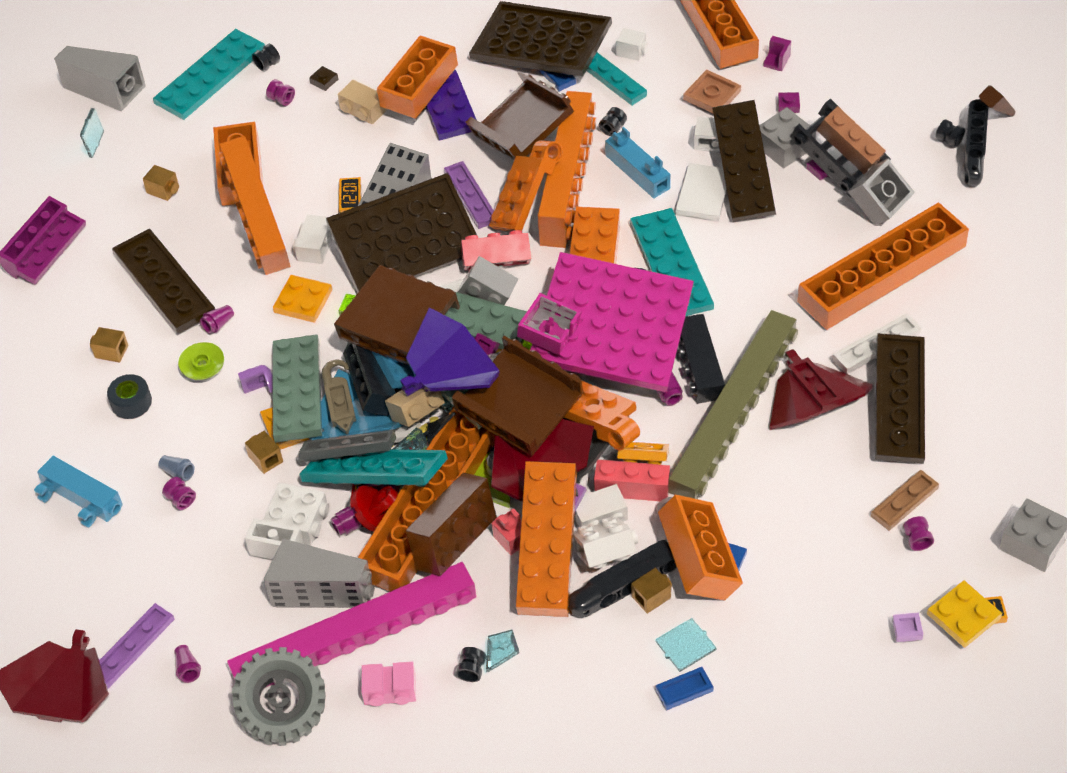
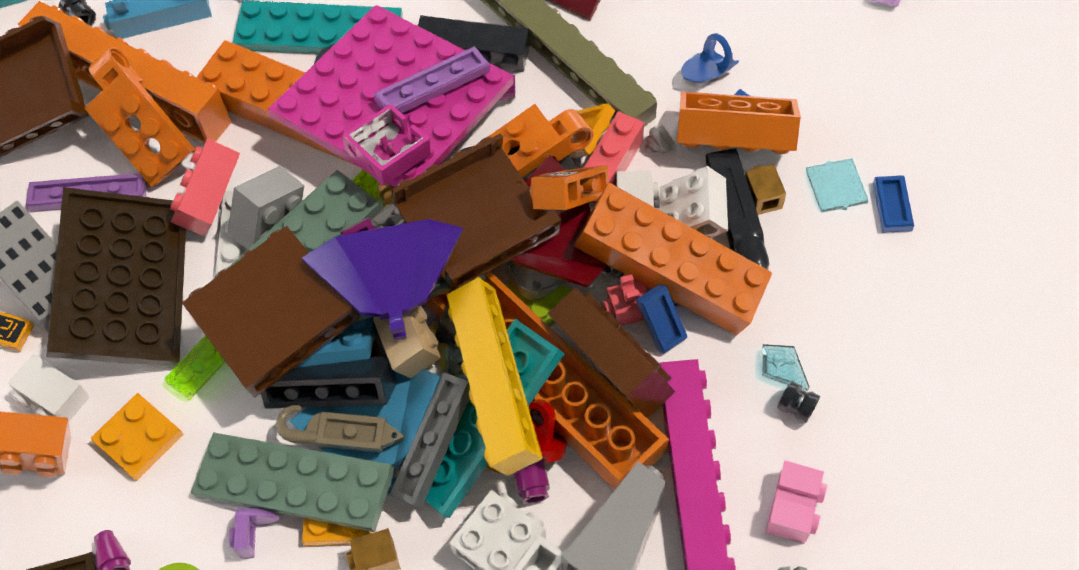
camera: 70 degrees left, 10 degrees up
(394, 451) = (493, 378): none -> yellow brick
(500, 553) = (661, 318): none -> blue tile
(568, 447) = (568, 188): none -> orange slope
(628, 336) = (433, 81): none -> medium lavender tile
(758, 518) = (708, 63): none -> blue piece

